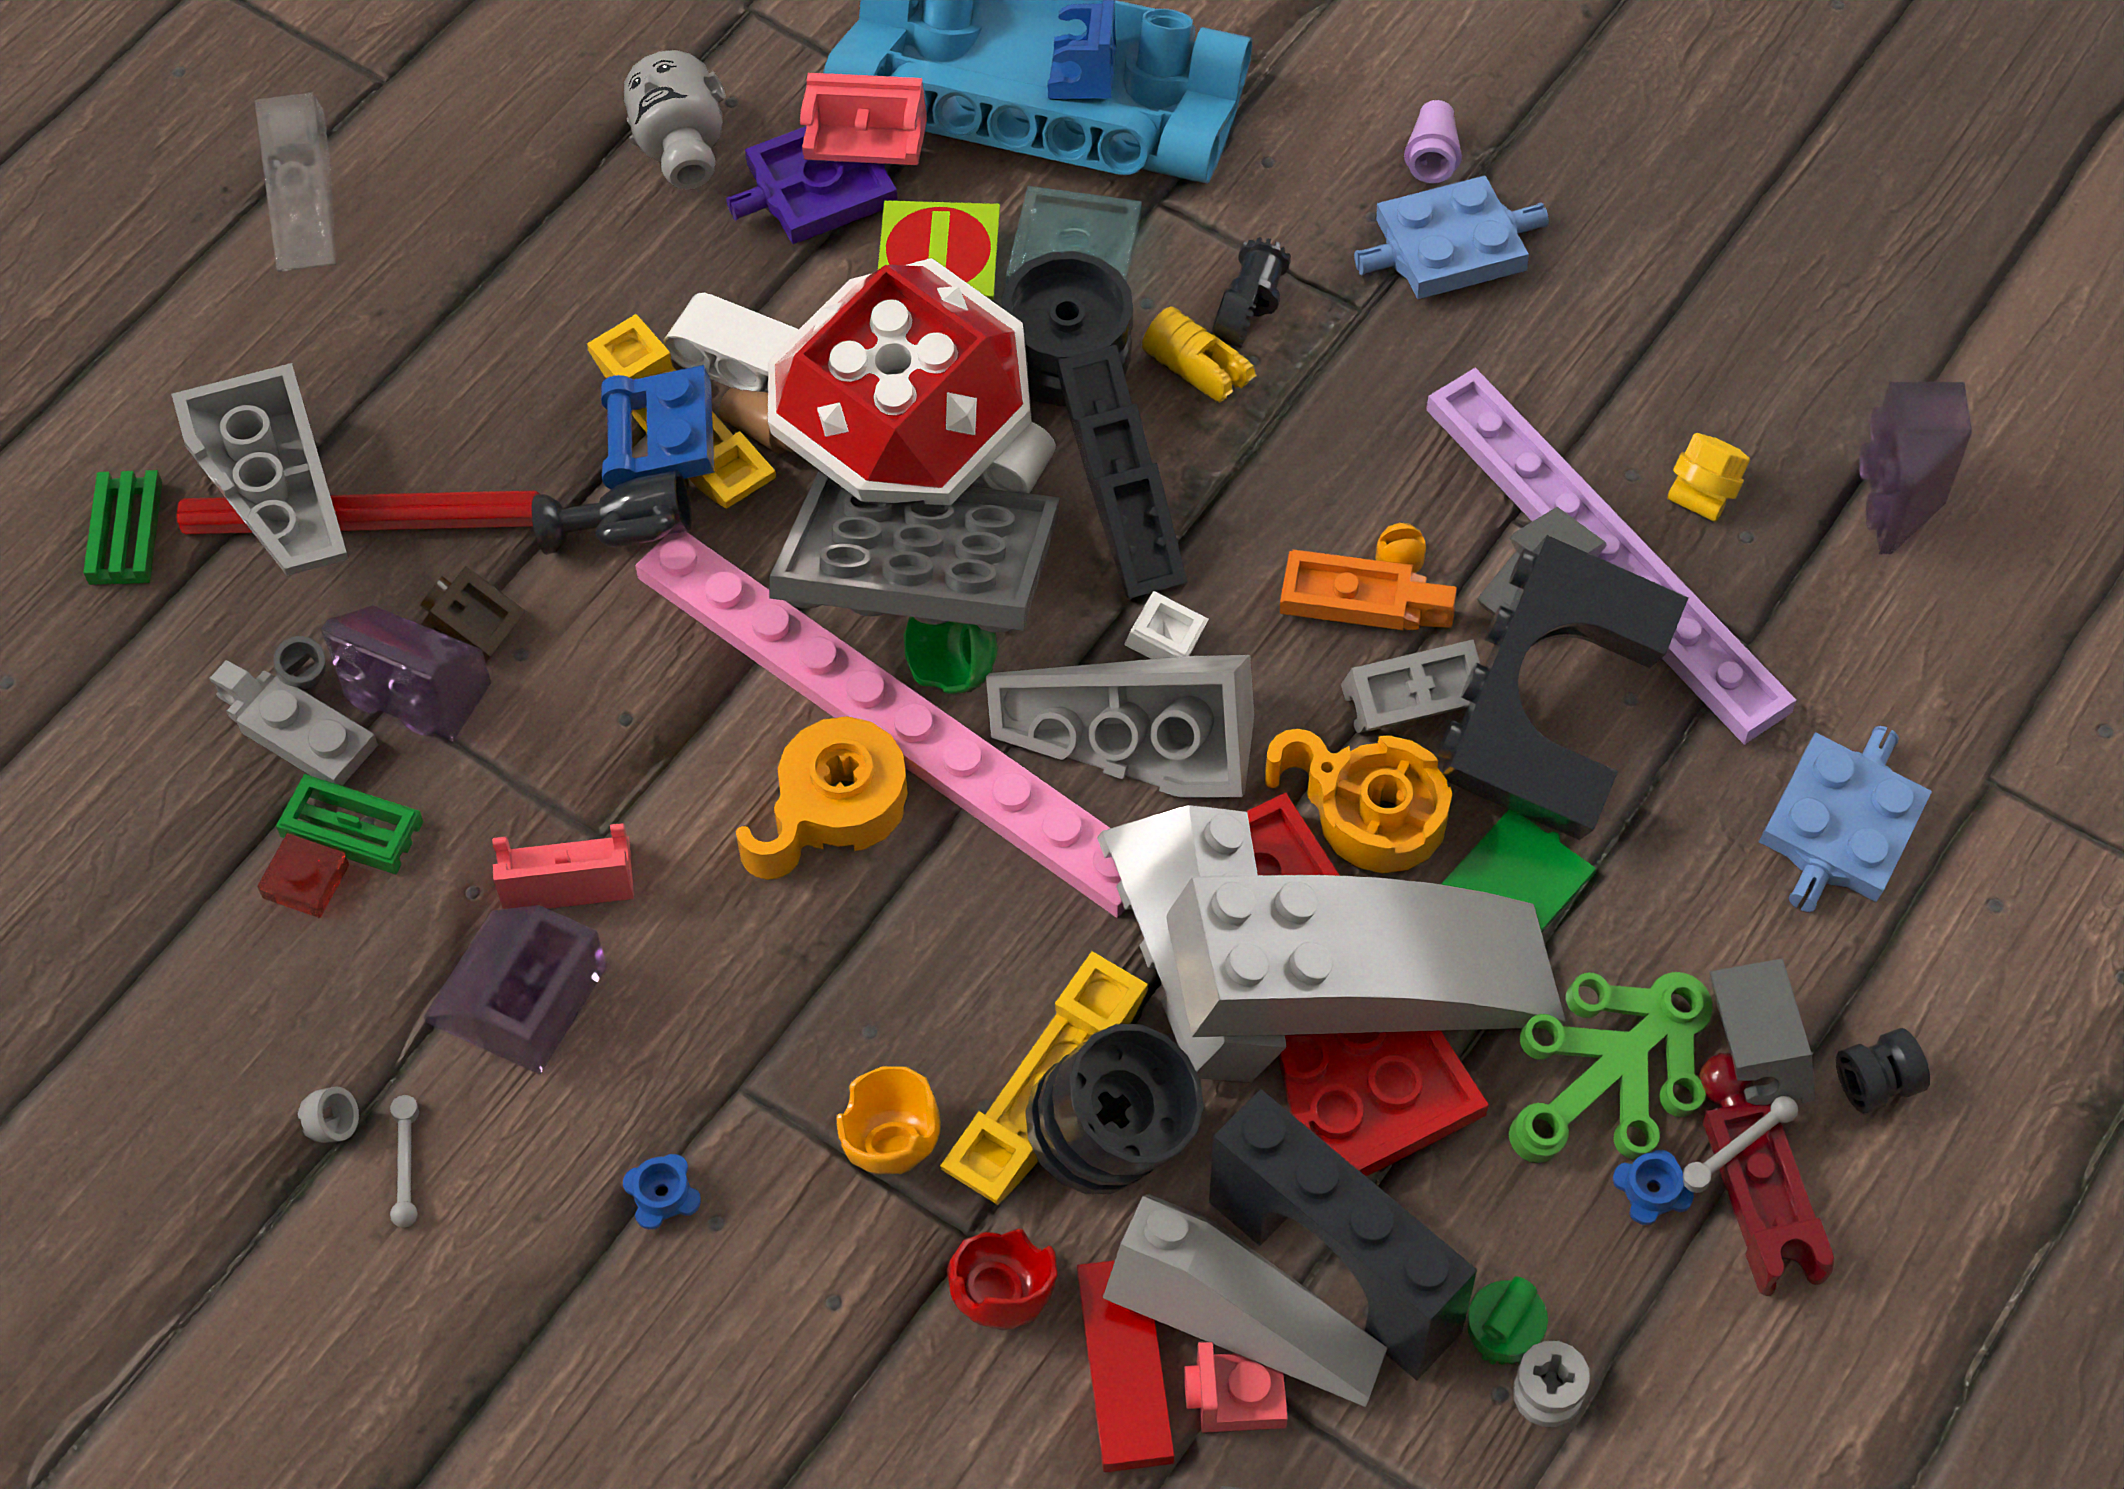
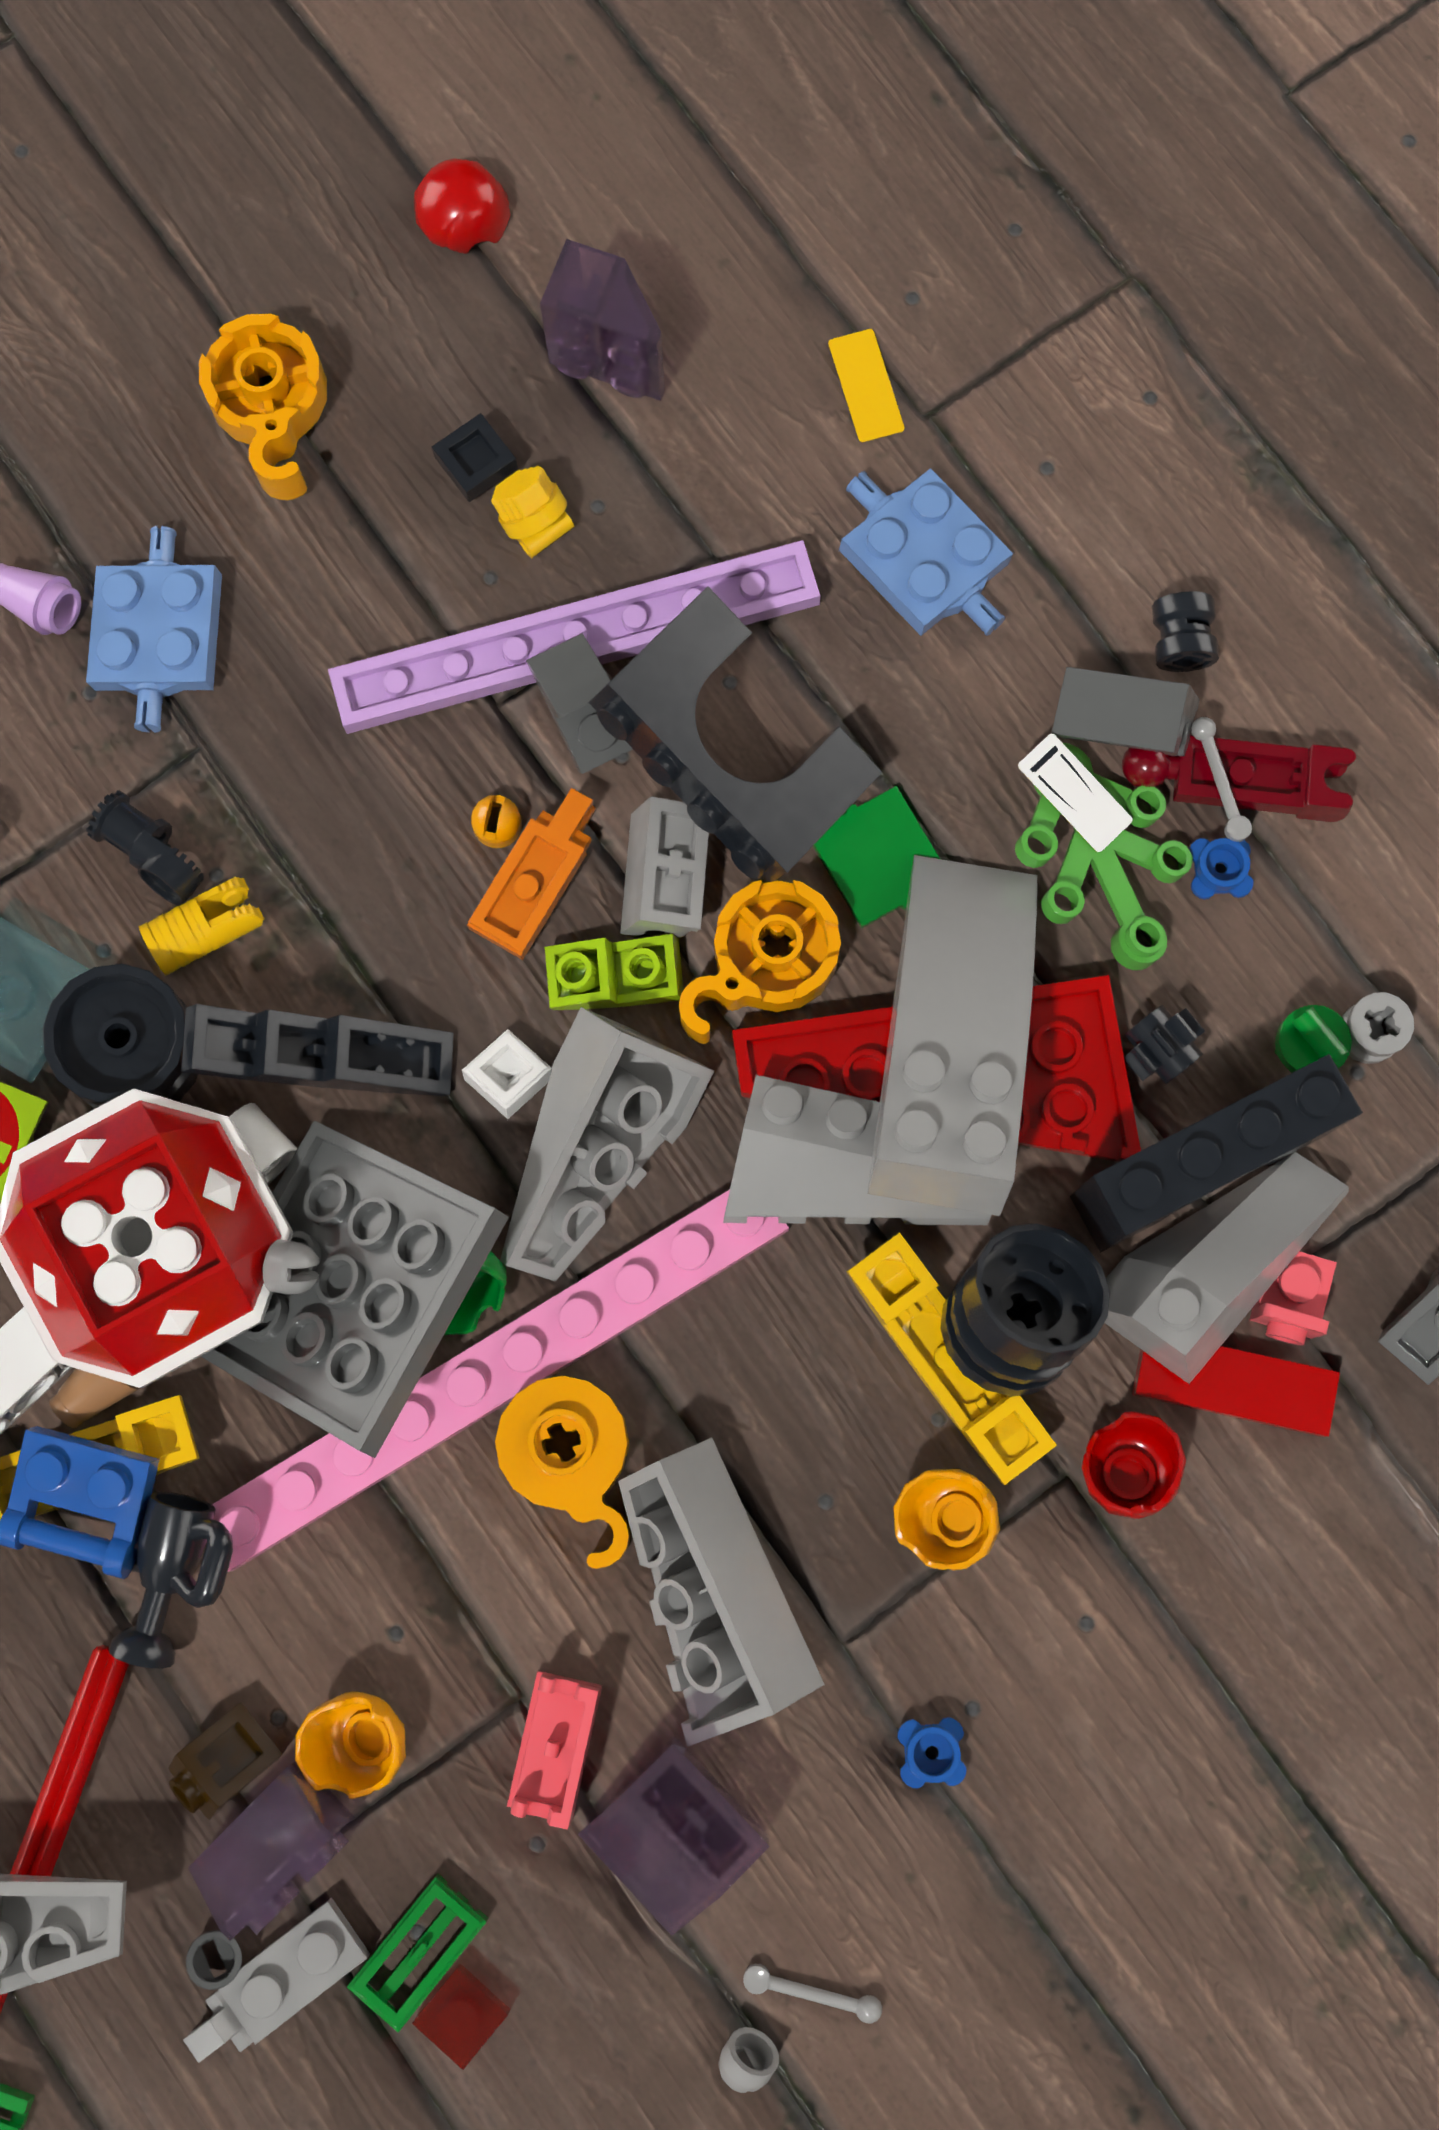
camera: 70 degrees left, 20 degrees up
(515, 699) = (350, 1744): none -> light orange hair
(752, 945) = (716, 1595): none -> light grey wedge
(926, 491) = (289, 1267): none -> light grey hinge
(1298, 686) = (615, 973): none -> lime slope
(1440, 1177) = (1164, 1044): none -> black gear
(1660, 1014) = (1075, 792): none -> white sticker
(1708, 239) = (269, 415): none -> light orange piece
(1736, 415) = (474, 457): none -> black plate
(1976, 330) = (461, 205): none -> red hair
(1991, 719) = (866, 385): none -> yellow sticker

